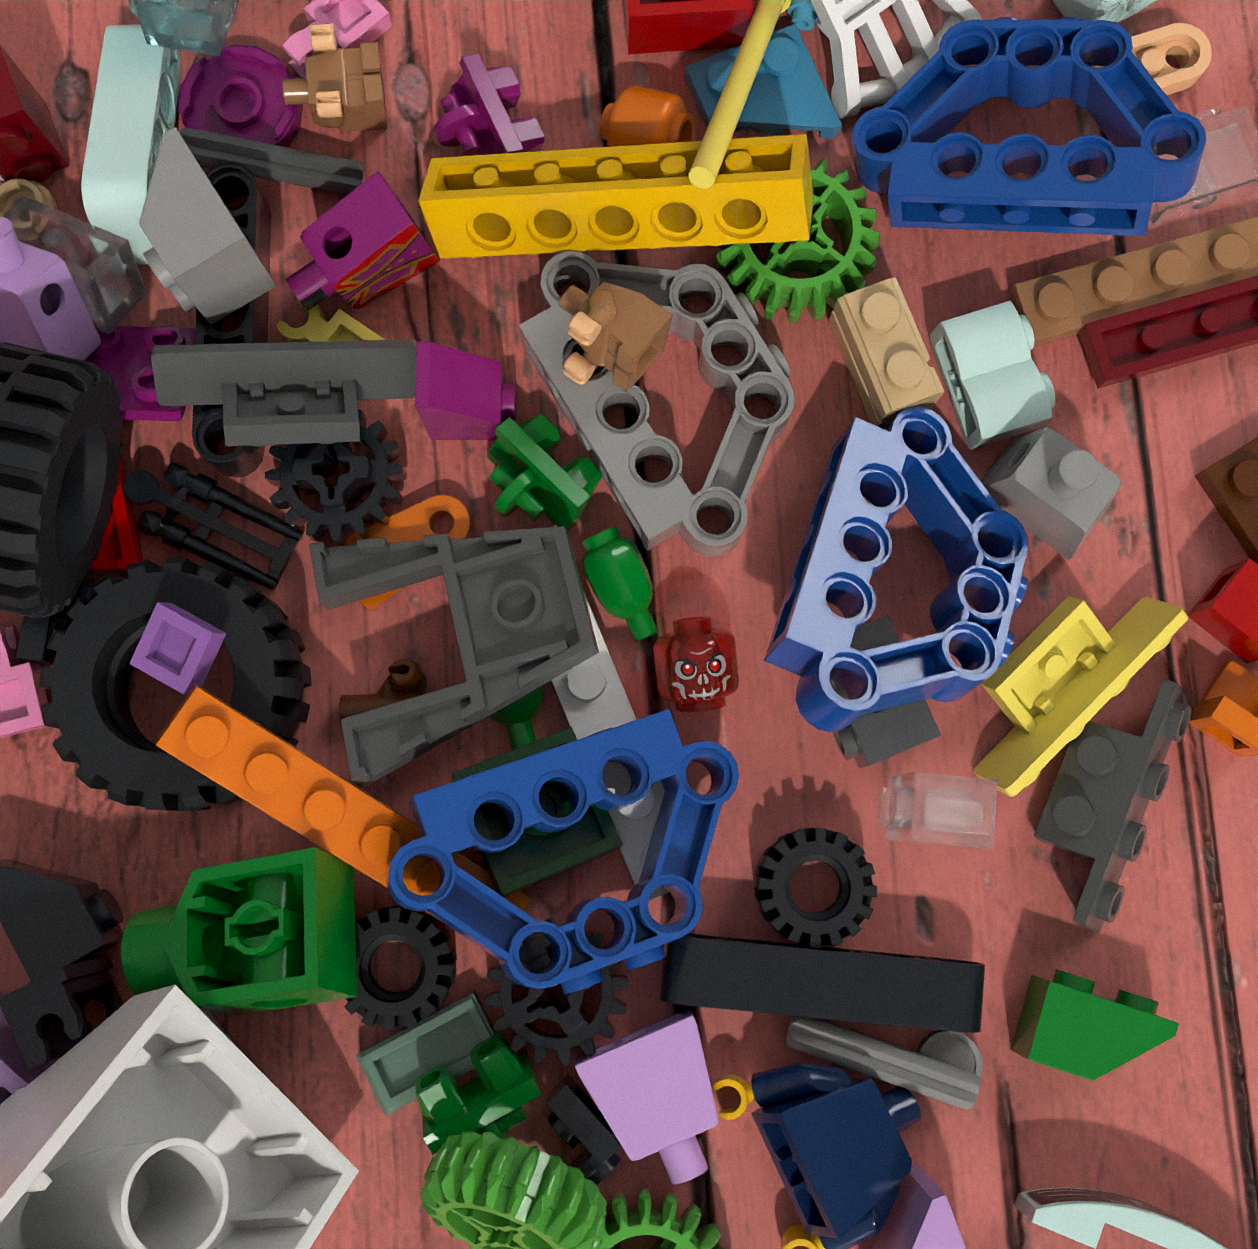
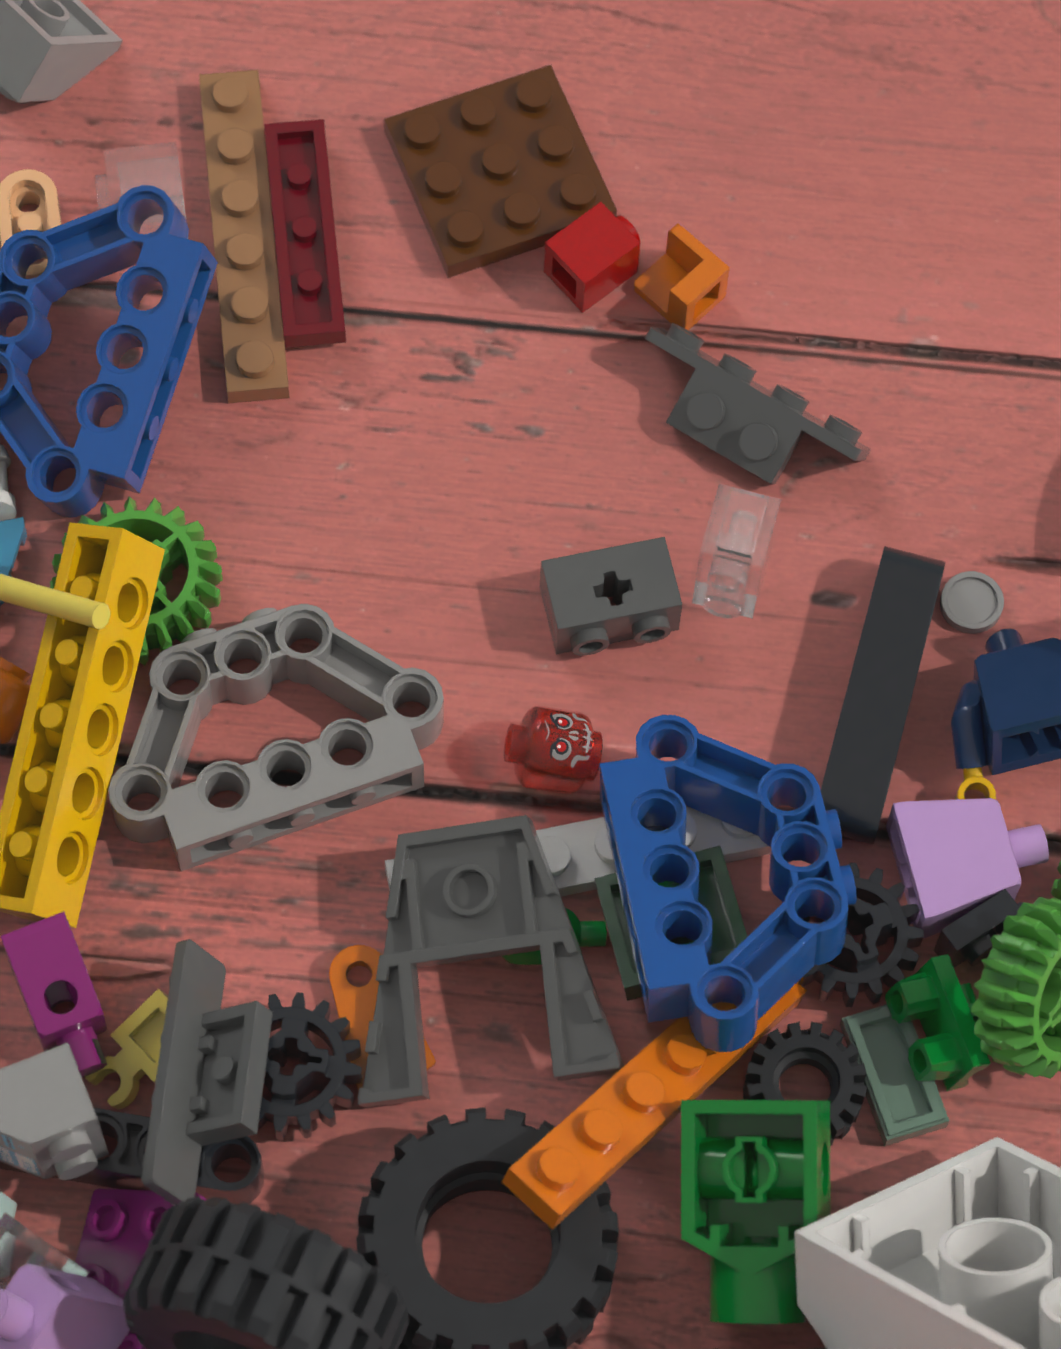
camera: 80 degrees left, 15 degrees down
(145, 488) = (309, 1208): black piece -> none
(177, 647) = (461, 1198): medium lavender plate -> none
(403, 683) = (530, 1048): reddish brown arm -> none
(461, 393) = (237, 920): magenta slope -> none
(534, 479) = (331, 869): green hips -> none
(616, 331) = (213, 746): medium nougat piece -> none
(620, 580) = (453, 804): green plant -> none
(854, 887) = (794, 650): black tyre -> none
(884, 351) = (277, 520): tan brick -> none
(884, 1061) = (959, 655): light grey axle -> none
(981, 551) = (410, 559): blue brick -> none
(992, 374) = (316, 430): light aqua brick -> none
(1052, 488) = (450, 392): light grey torso -> none
(1064, 679) = (628, 423): light yellow bracket -> none
(1083, 1032) = (956, 477): green slope -> none

